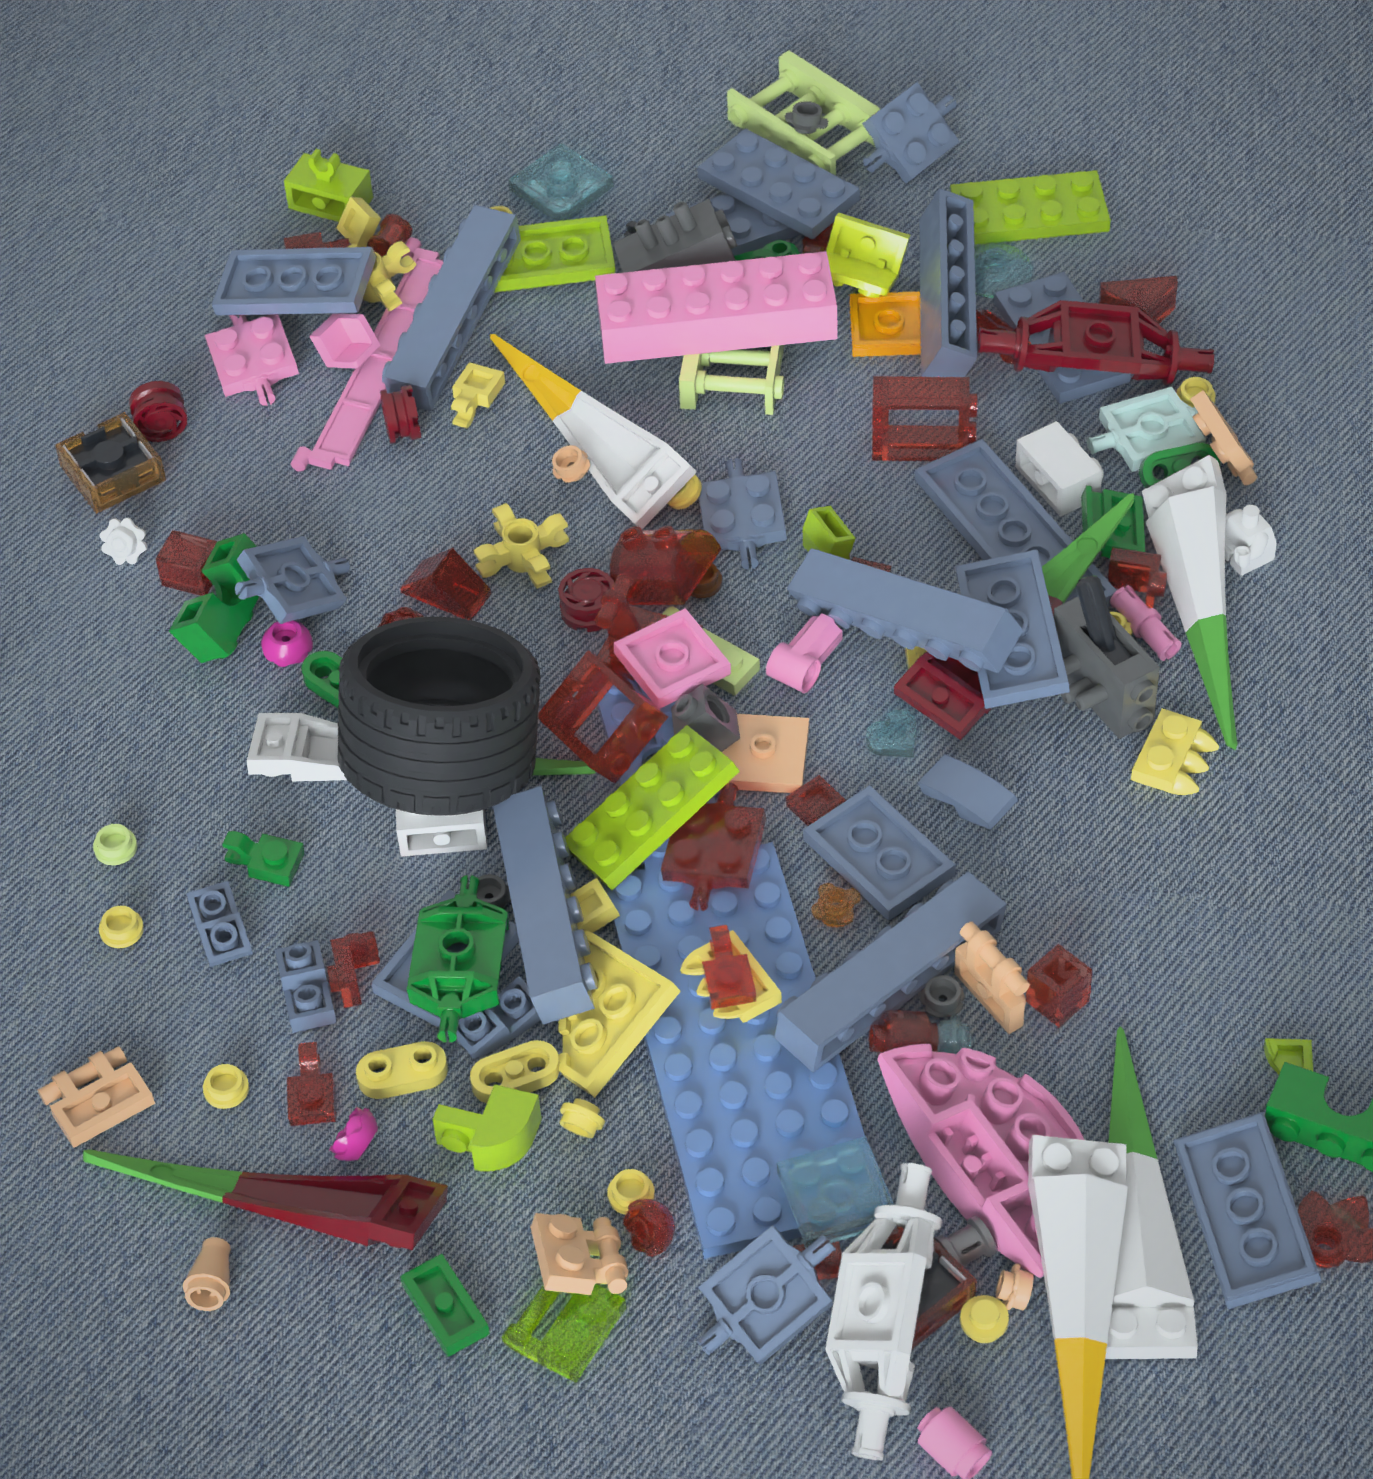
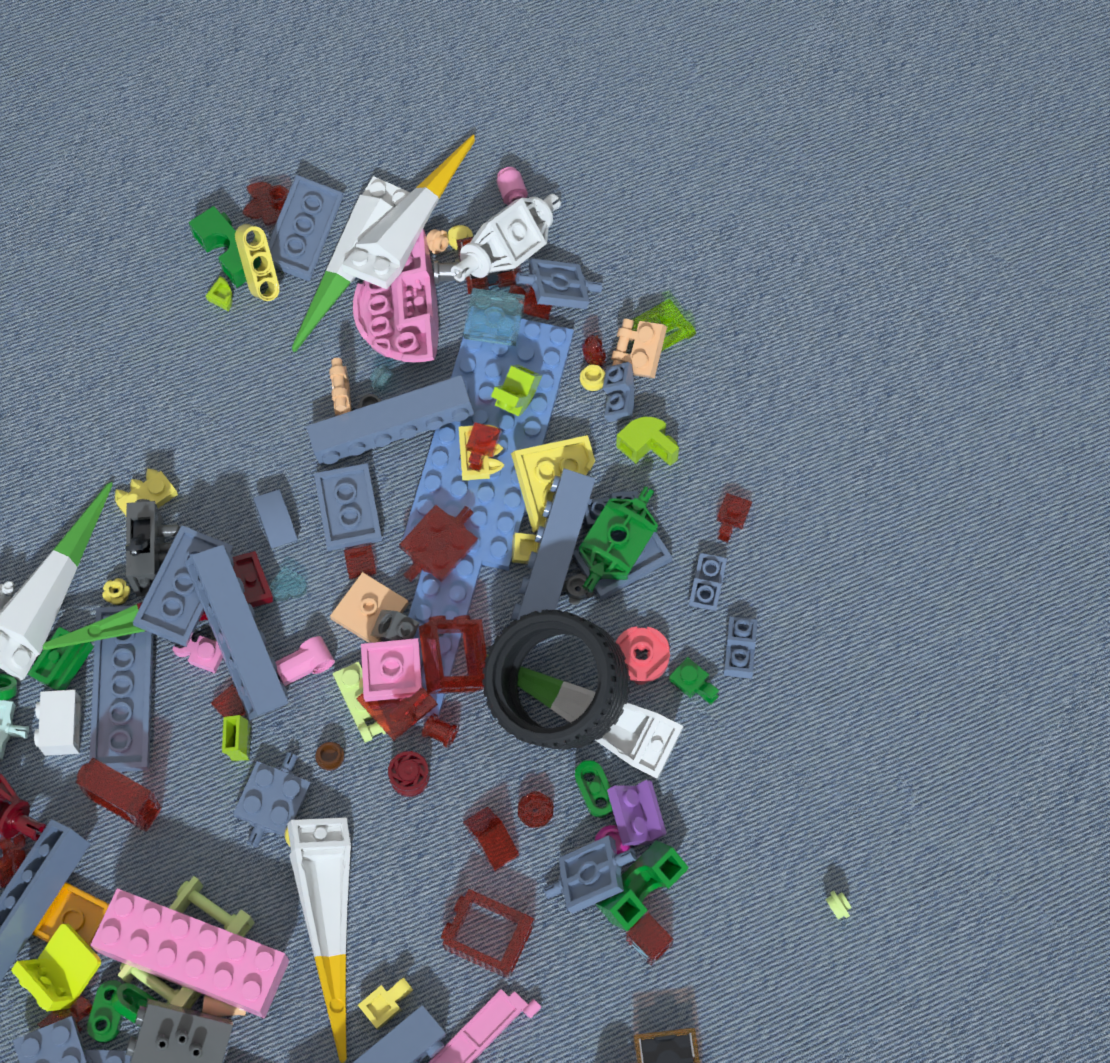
camera: 155 degrees left, 15 degrees up
(100, 1104) = (851, 558): light nougat plate -> none
(114, 844) = (781, 735): yellowish green plate -> none
(121, 927) = (799, 673): light yellow plate -> none
(123, 541) = (685, 986): white plant -> none
(209, 1277) = (830, 429): light nougat cone -> none
(225, 1086) = (778, 539): light yellow plate -> none
(270, 672) = (637, 813): none -> medium lavender bracket
(349, 953) = (676, 585): clear red bracket -> none
(353, 1208) = (738, 427): dark red plate -> none
(356, 1136) = (722, 471): dark pink plate -> none
(358, 874) = (658, 653): none -> coral plate
(391, 516) = (514, 950): none -> clear red window
(400, 414) = (448, 998): dark red wheel -> none
(402, 1070) = (677, 508): light yellow plate -> none
(440, 834) = (573, 653): white brick -> none
(445, 1305) = (716, 361): green plate -> none
(513, 1069) = (619, 468): light yellow plate -> none
(521, 545) = (404, 839): light yellow pin -> none
(569, 654) = (440, 730): none -> clear red bush
(570, 463) = (365, 897): light nougat plate -> none
(572, 1181) = (620, 390): none -> sand blue slope
(581, 1118) = (597, 425): light yellow plate -> none
(650, 806) = (460, 580): lime plate -> none
(663, 563) = (349, 766): clear red brick -> none
(725, 1073) = (517, 389): none -> lime brick
(832, 914) = (391, 496): clear orange plate -> none
(902, 1029) = (404, 382): clear red head -> none
(1059, 985) = (311, 372): clear red brick -> none
(1139, 571) = (68, 609): clear red bracket -> none
(1145, 623) = (95, 582): bright pink pin -> none
(1256, 1081) = (266, 270): none -> light yellow beam

